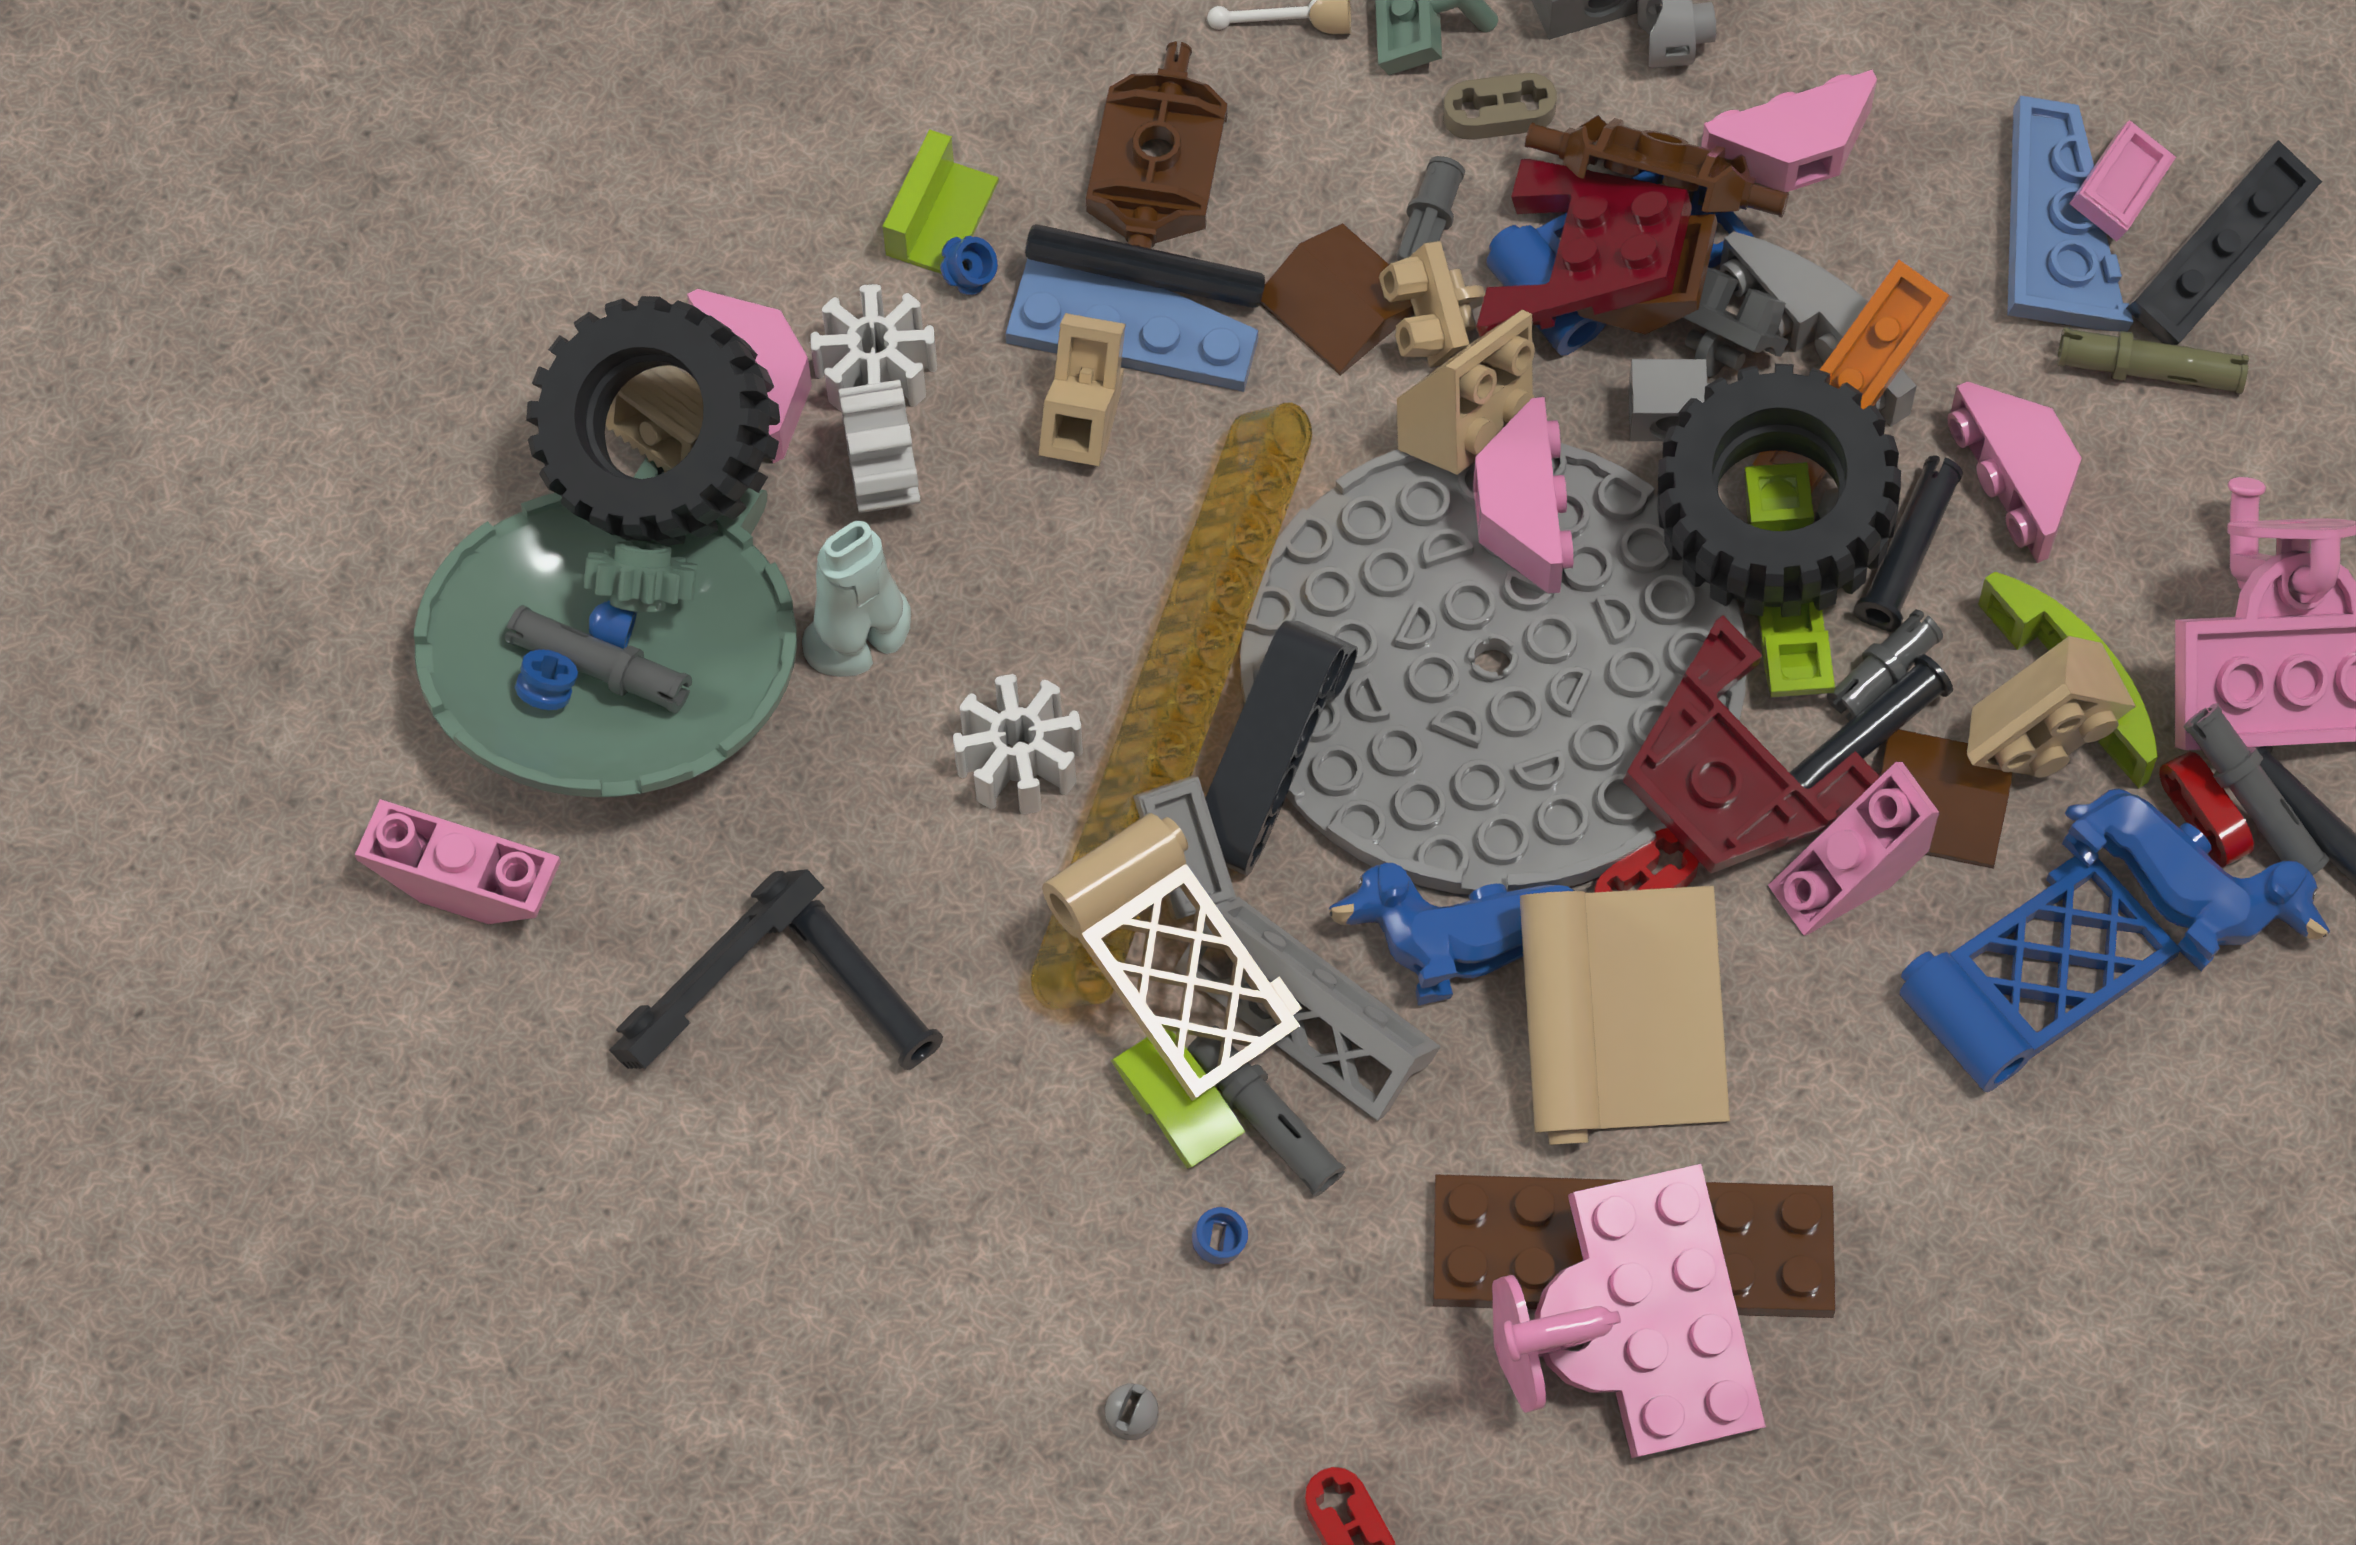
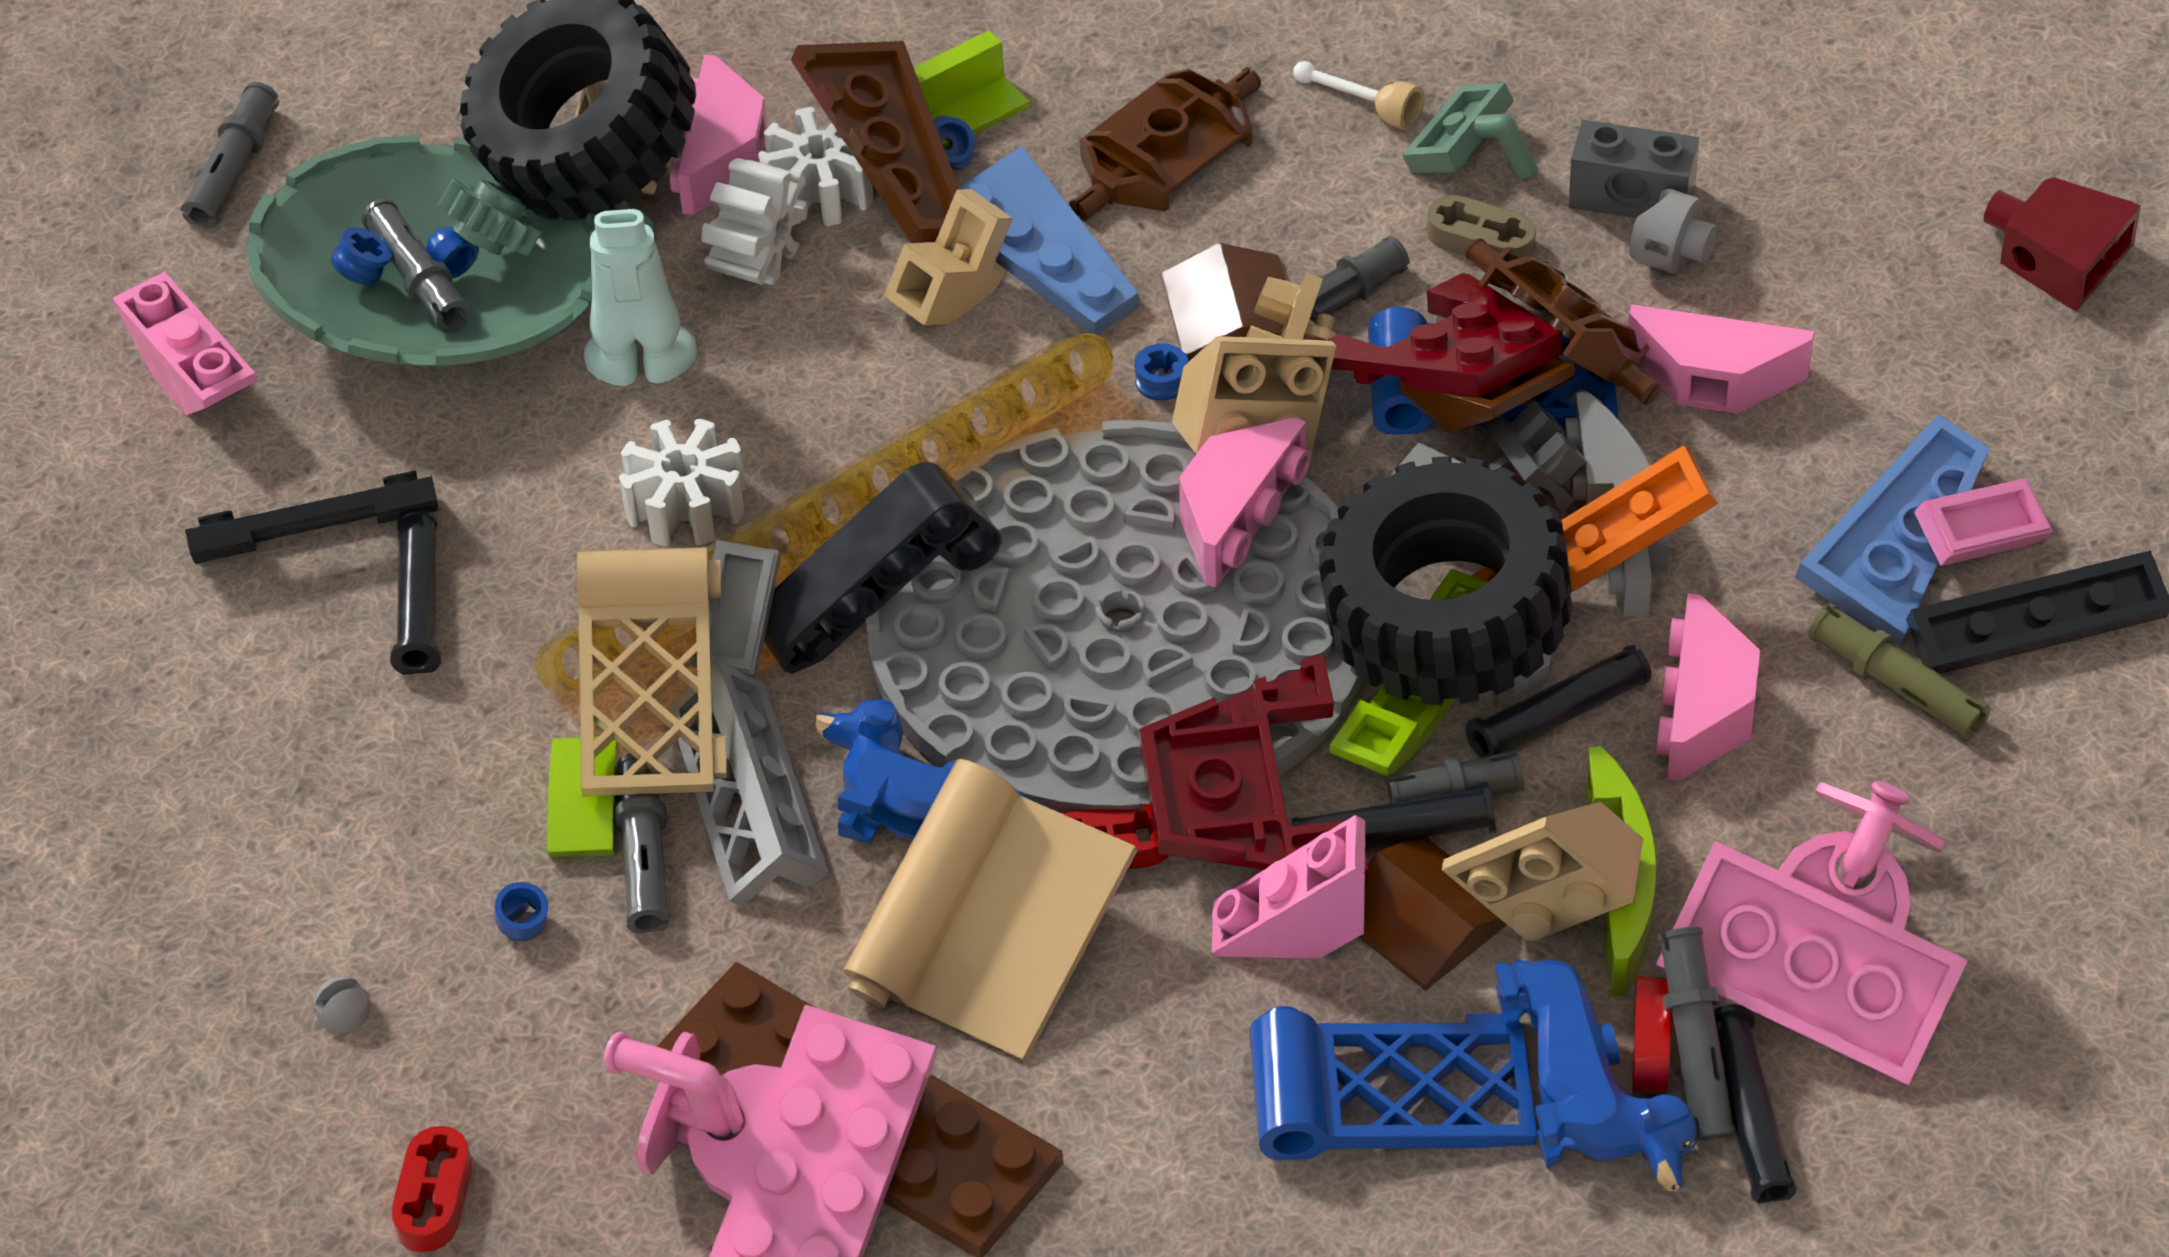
camera: 35 degrees right, 15 degrees down
(294, 611) = (238, 138): none -> dark grey pin
(926, 283) = (887, 125): none -> reddish brown wing
(1145, 266) = (1081, 202): black axle -> none
(1329, 382) = (1155, 357): none -> blue bush

